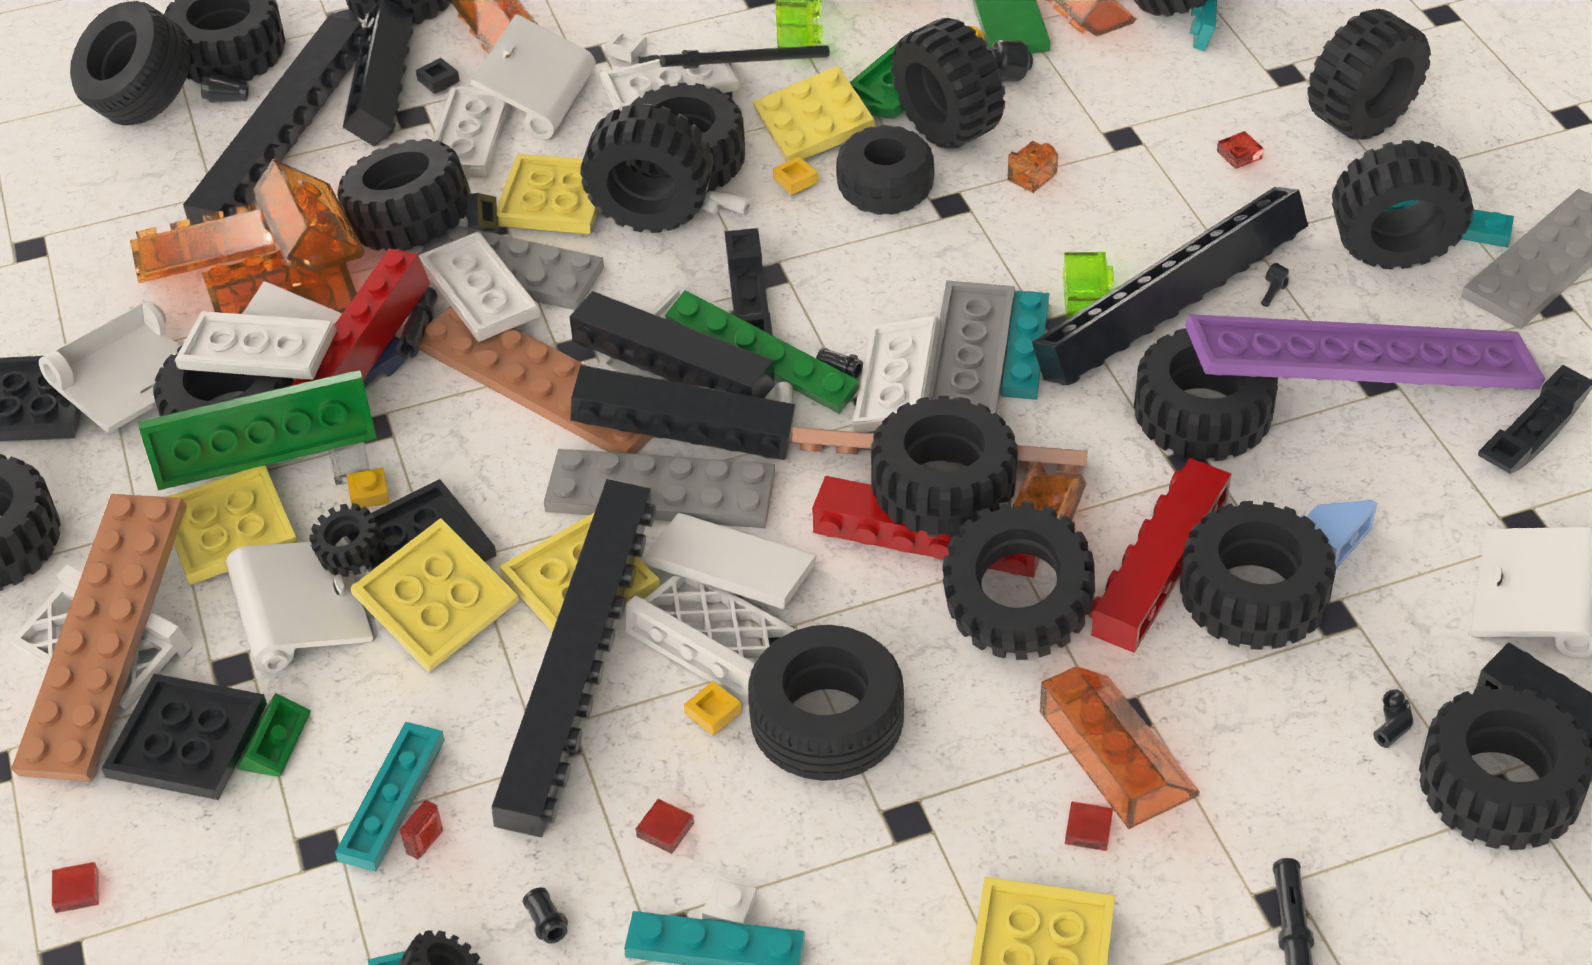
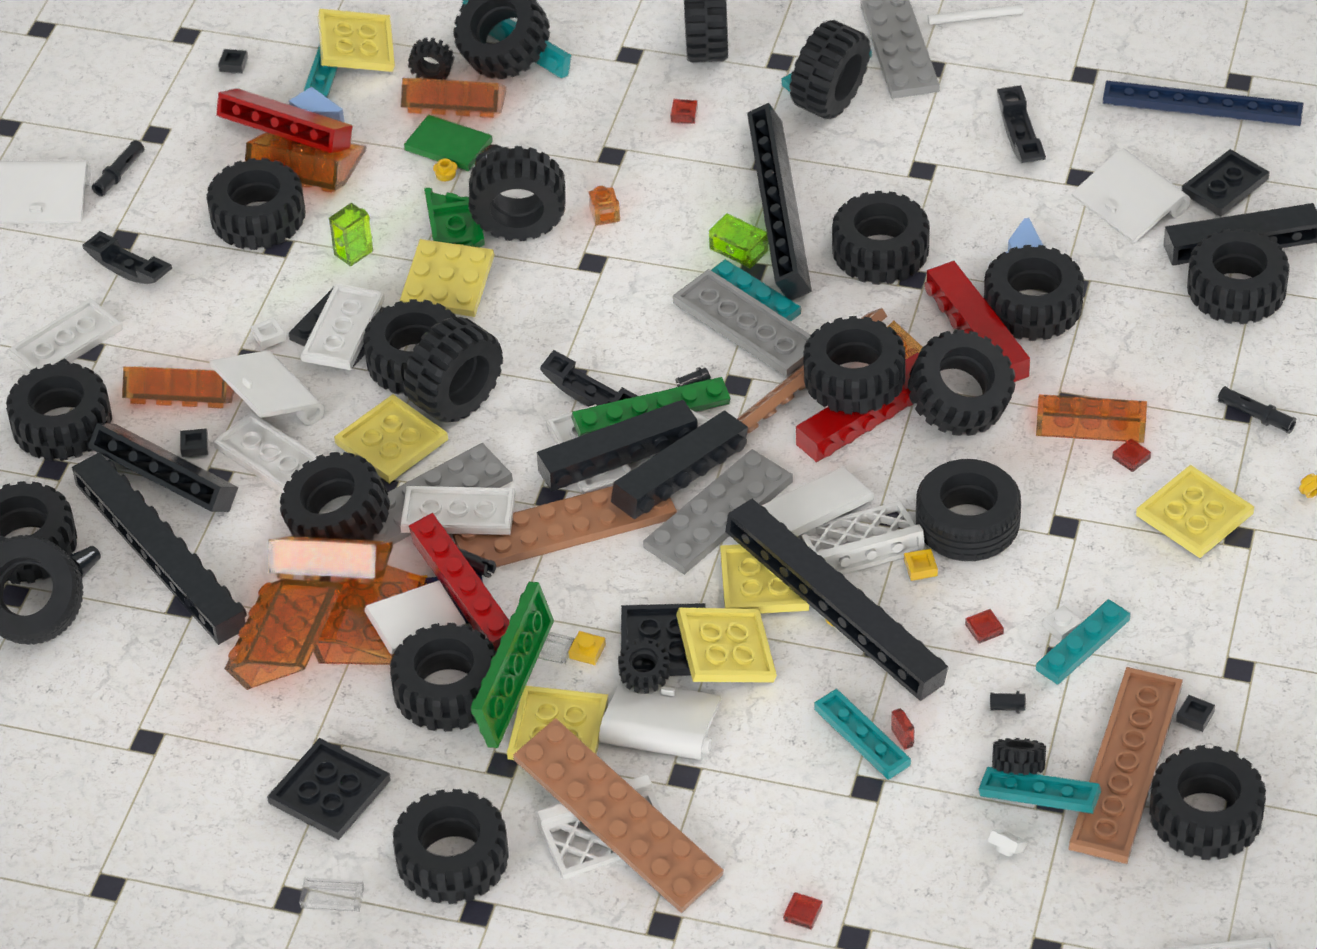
camera: 55 degrees left, 0 degrees up
(113, 366) = (353, 724): white door -> none
(185, 736) = (729, 813): black plate -> none
(256, 345) = (439, 629): white tile -> none
(274, 737) = (761, 775): green slope -> none
(481, 212) = (388, 477): black plate -> none
(693, 58) = (352, 297): black bar -> none
(795, 175) = (497, 315): yellow plate -> none
(885, 169) = (543, 270): black tyre -> none
(895, 369) = (730, 355): white tile -> none
(1278, 278) = (807, 158): black hand -> none
(1362, 352) = (921, 155): medium lavender plate -> none
(1397, 717) = (1166, 300): black arm -> none

